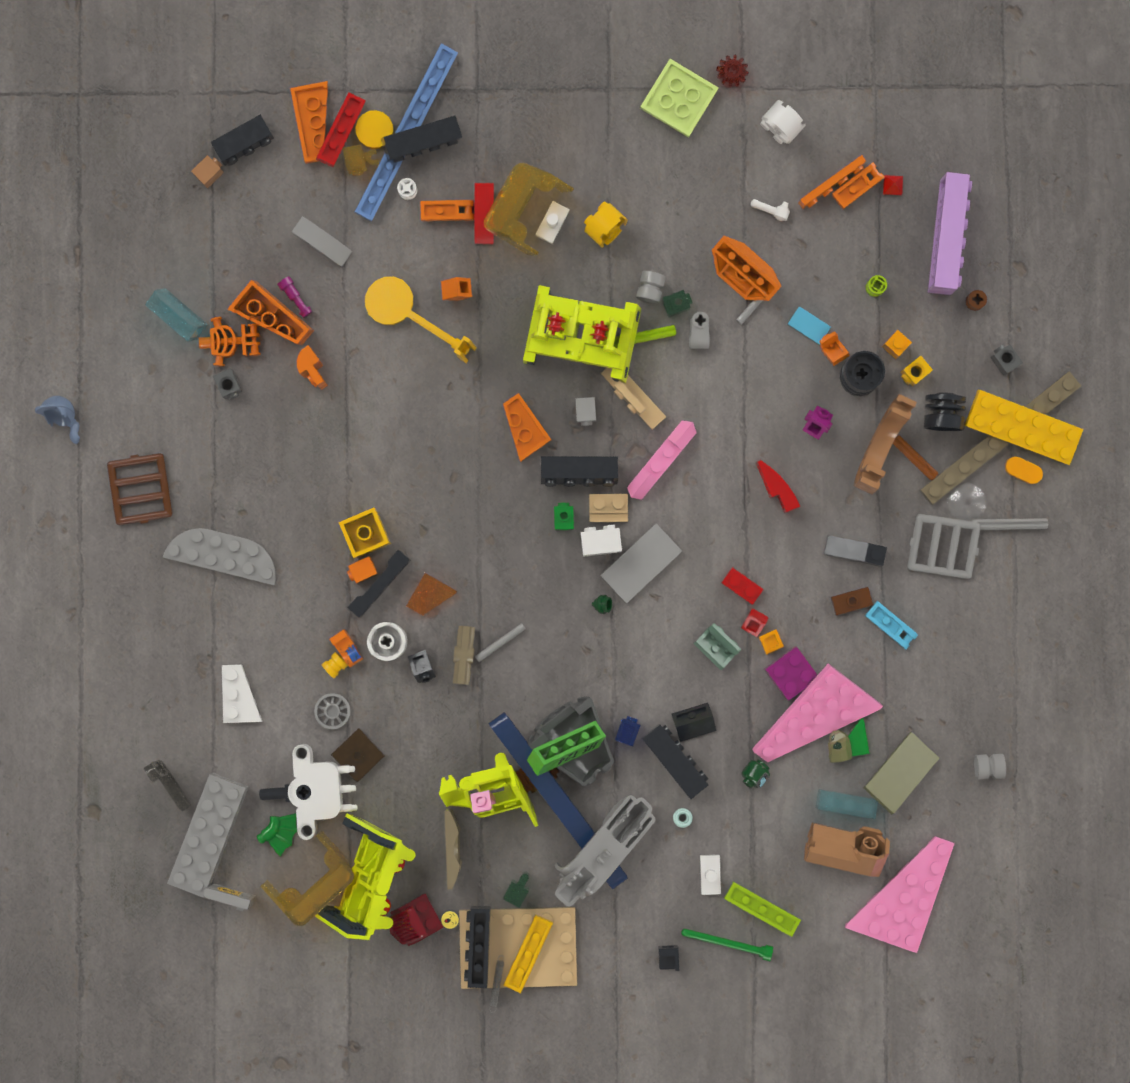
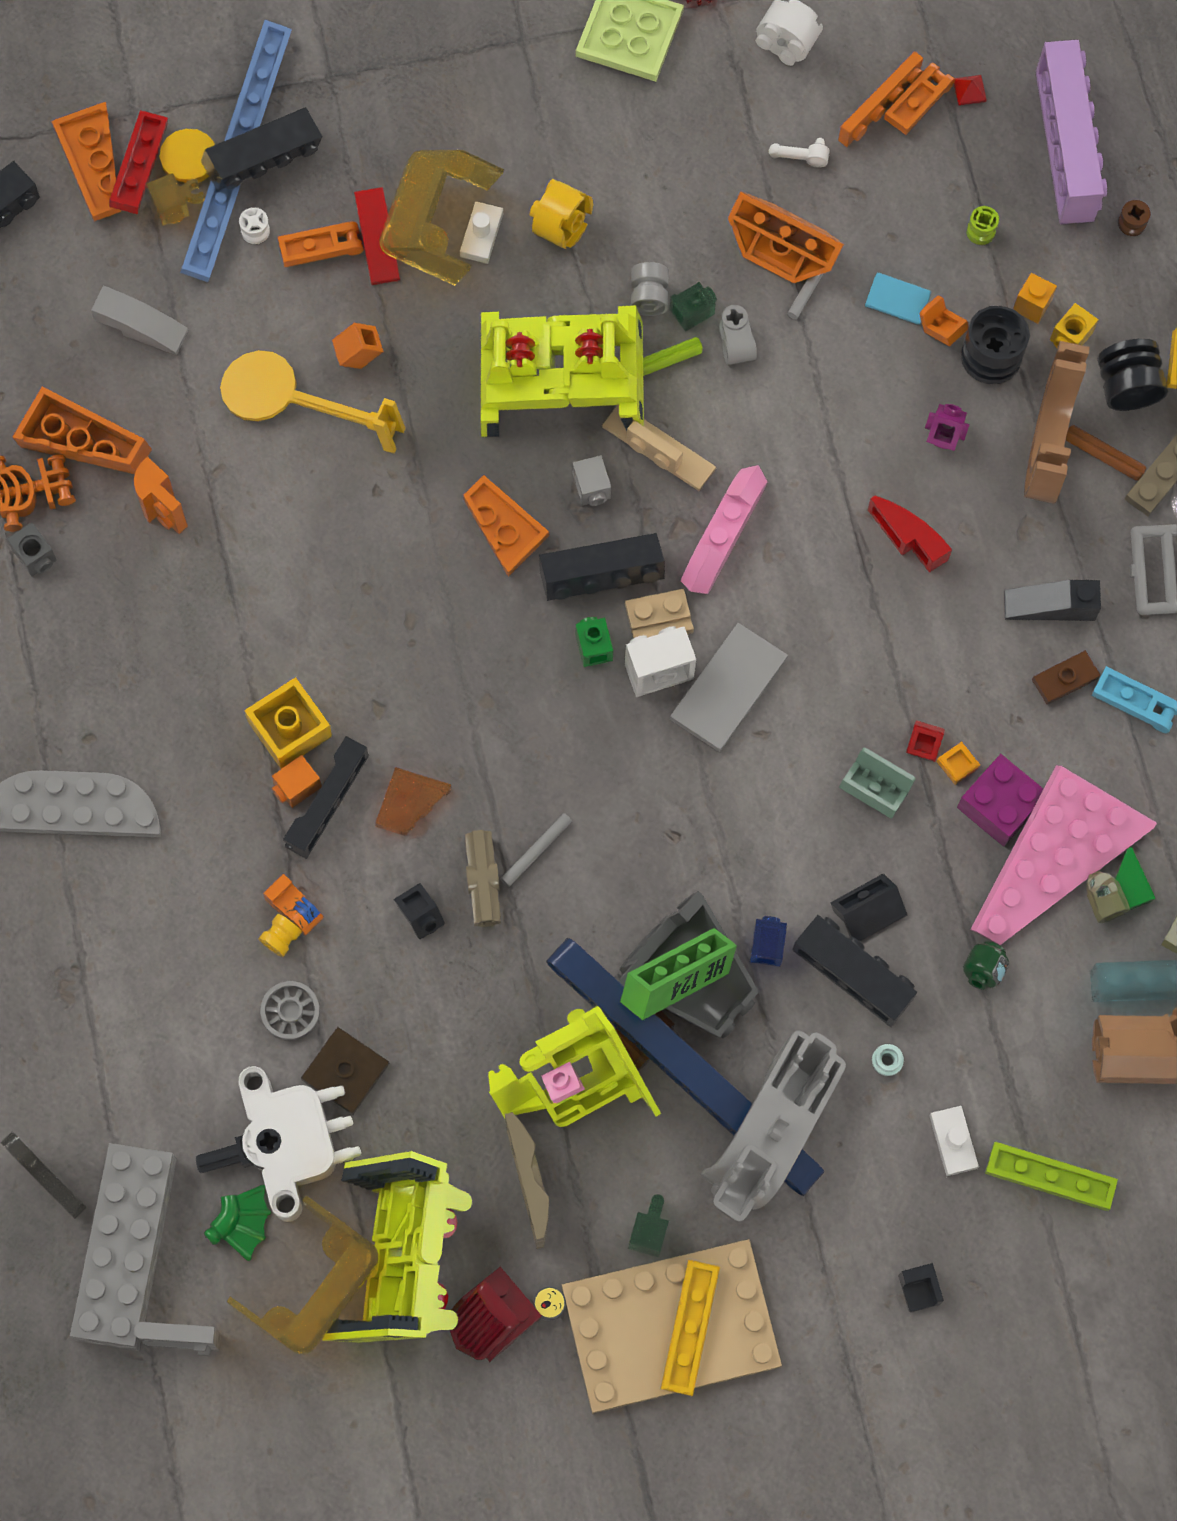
camera: 15 degrees left, 15 degrees down
(237, 696) = (132, 1020): white wing -> none
(287, 286) = (98, 393): magenta piece -> none
(377, 636) = (366, 865): white brick -> none
(478, 951) = (608, 1327): black brick -> none
(499, 971) = (647, 1389): light grey piece -> none
(602, 604) = (683, 758): dark green plate -> none
(742, 586) = (892, 689): red plate -> none
(764, 952) = (1072, 1245): green piece -> none

